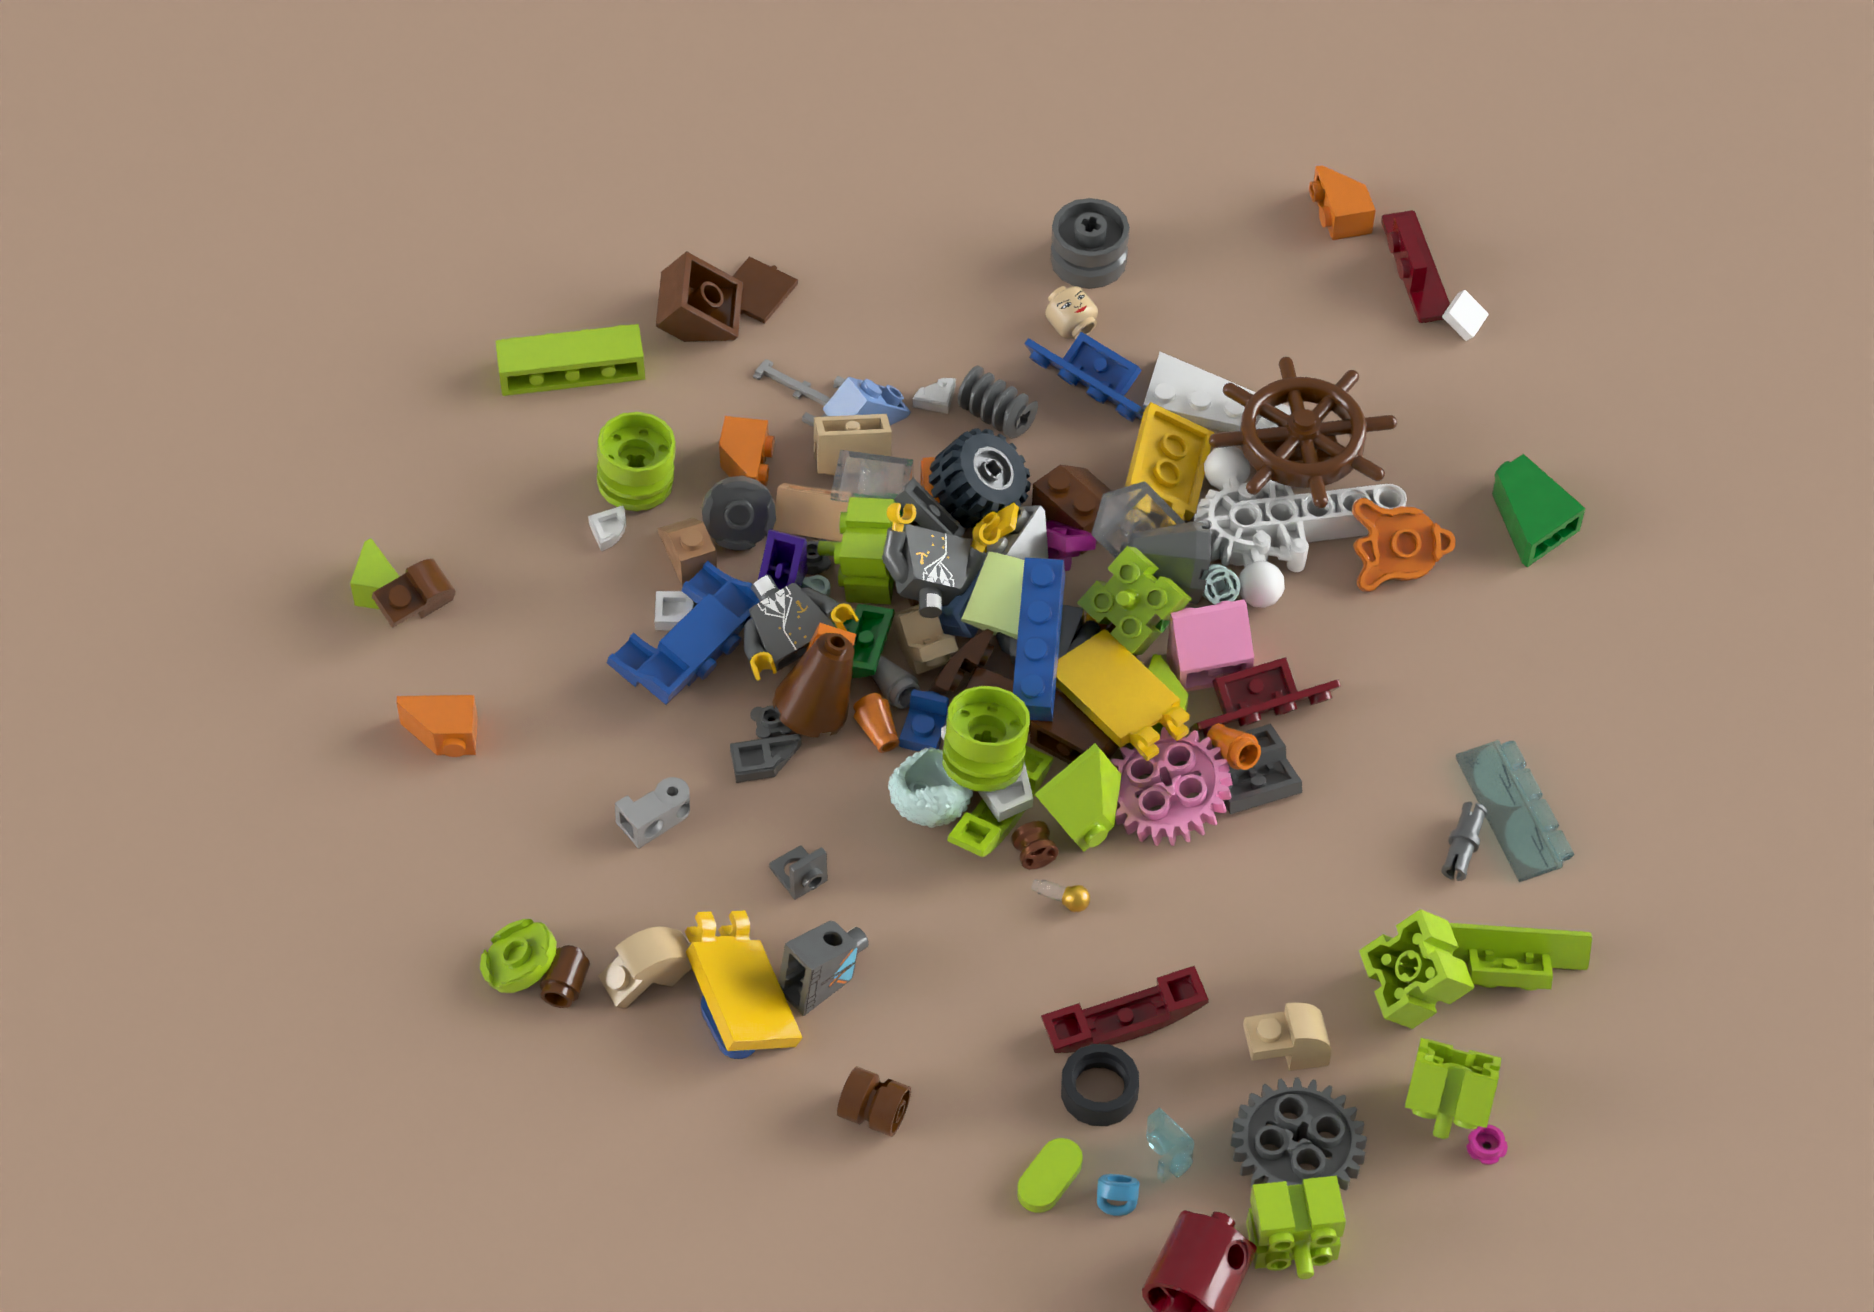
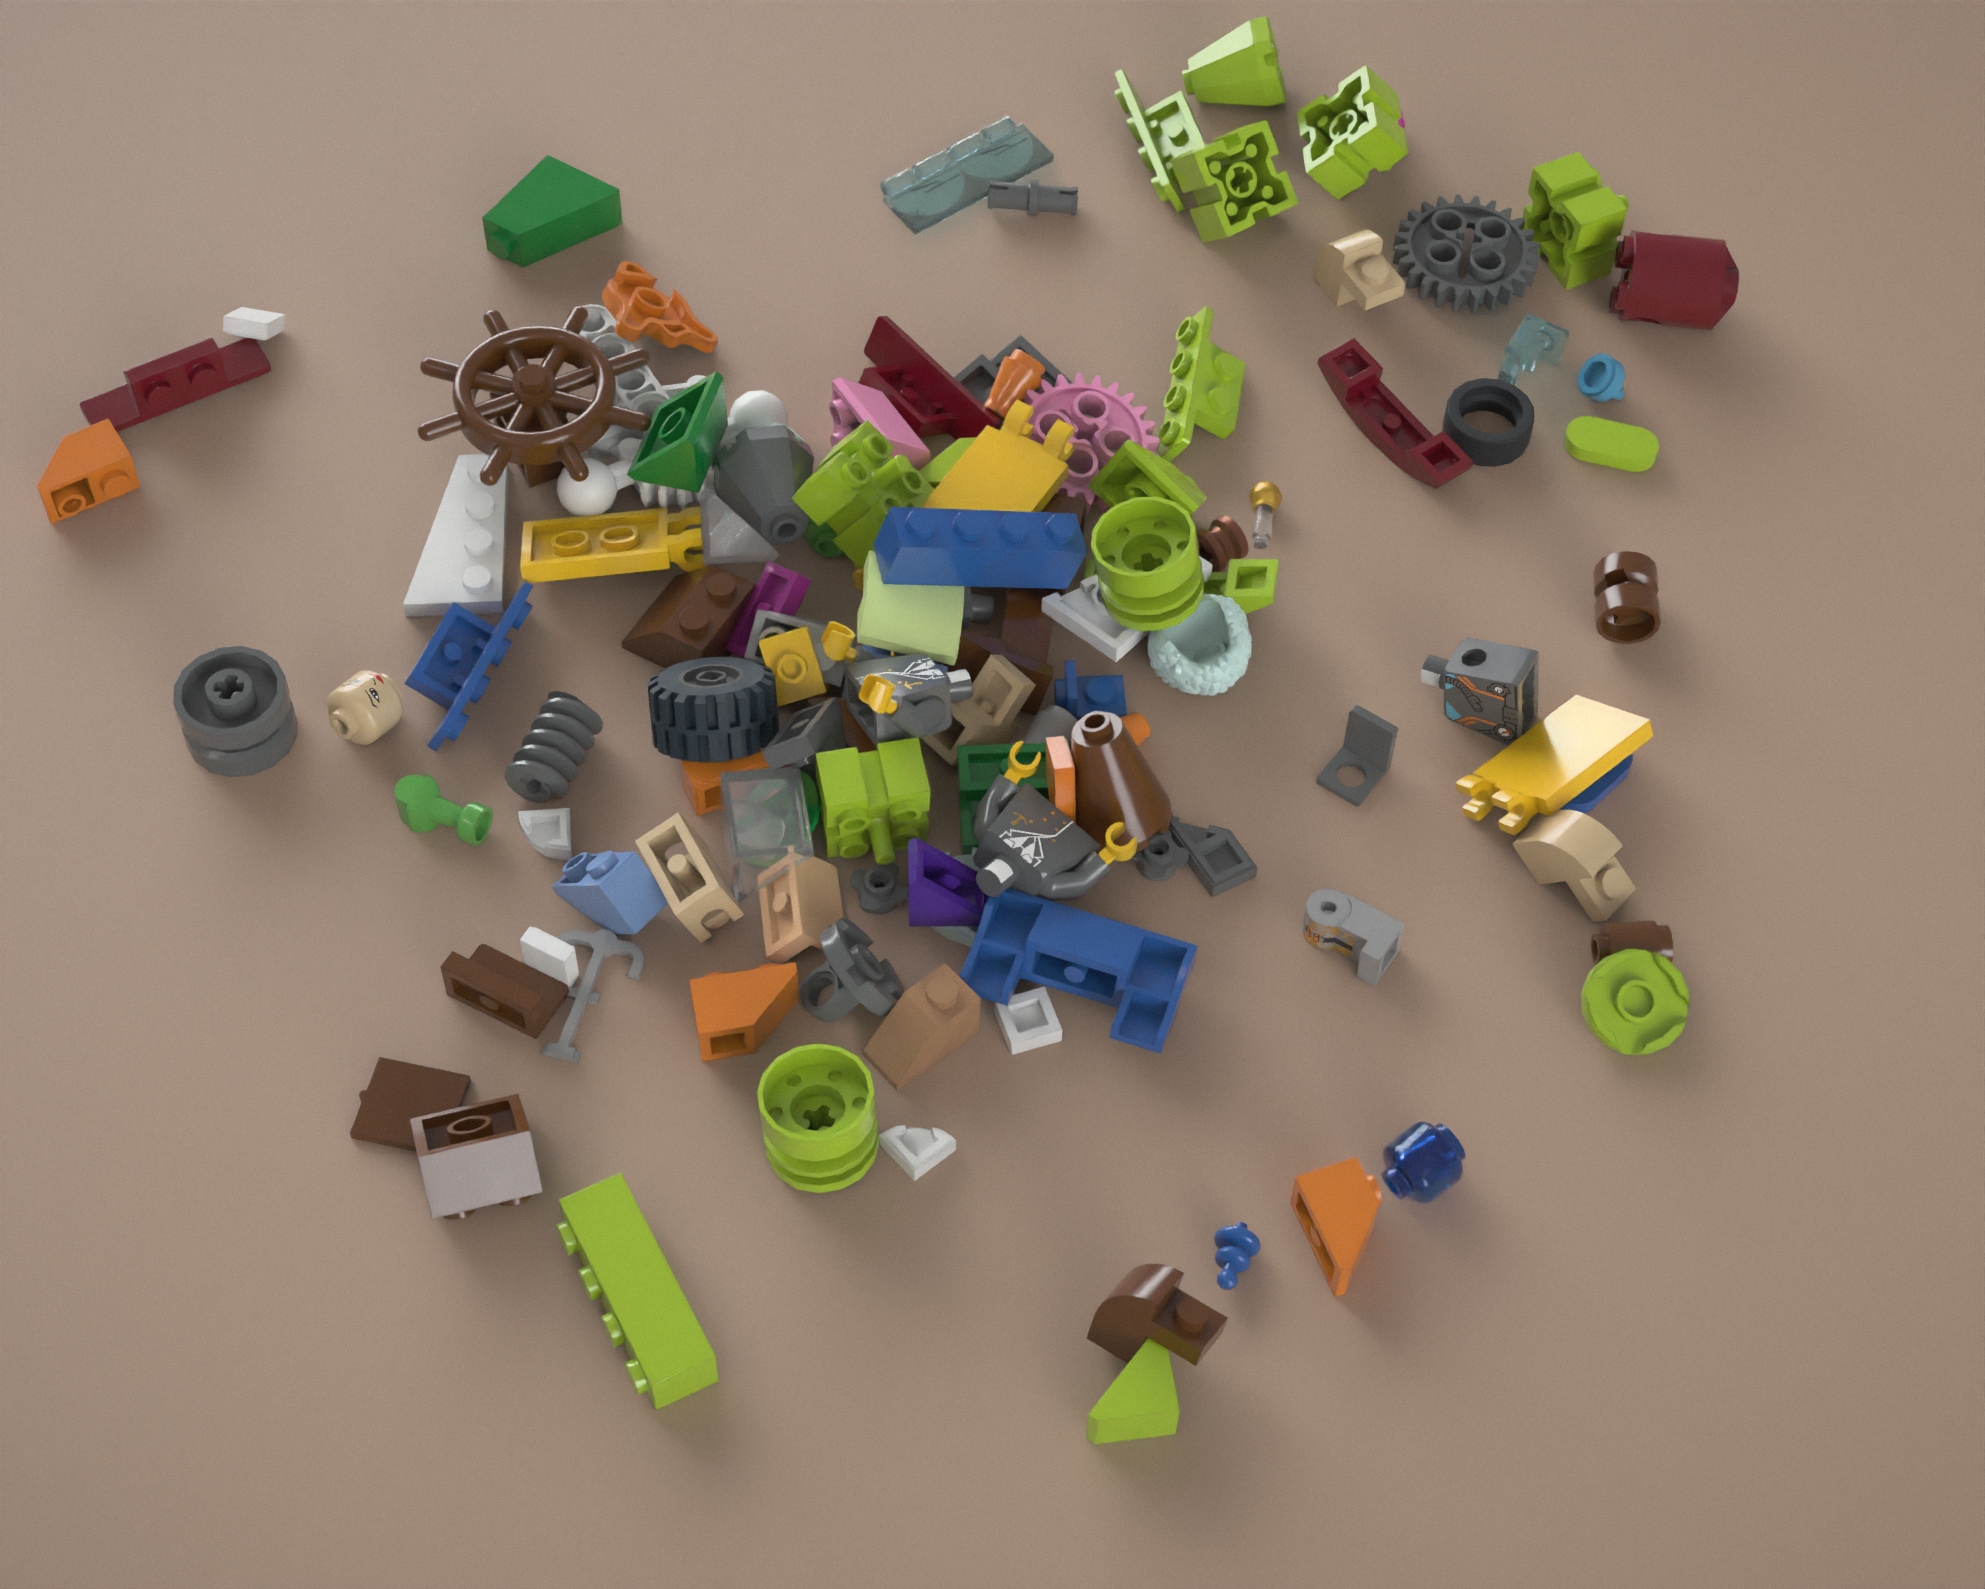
camera: 110 degrees left, 0 degrees up
(449, 663) = (1234, 1251): none -> blue hair
(458, 782) = (1423, 1162): none -> clear blue head
(818, 344) = (504, 989): none -> reddish brown panel
(827, 367) = (550, 955): none -> white tile
(980, 335) = (424, 809): none -> bright green leg
(1202, 895) = (1202, 387): none -> lime bracket
(1226, 509) = (683, 437): none -> green slope
(1571, 1042) = (1238, 68): none -> lime cone

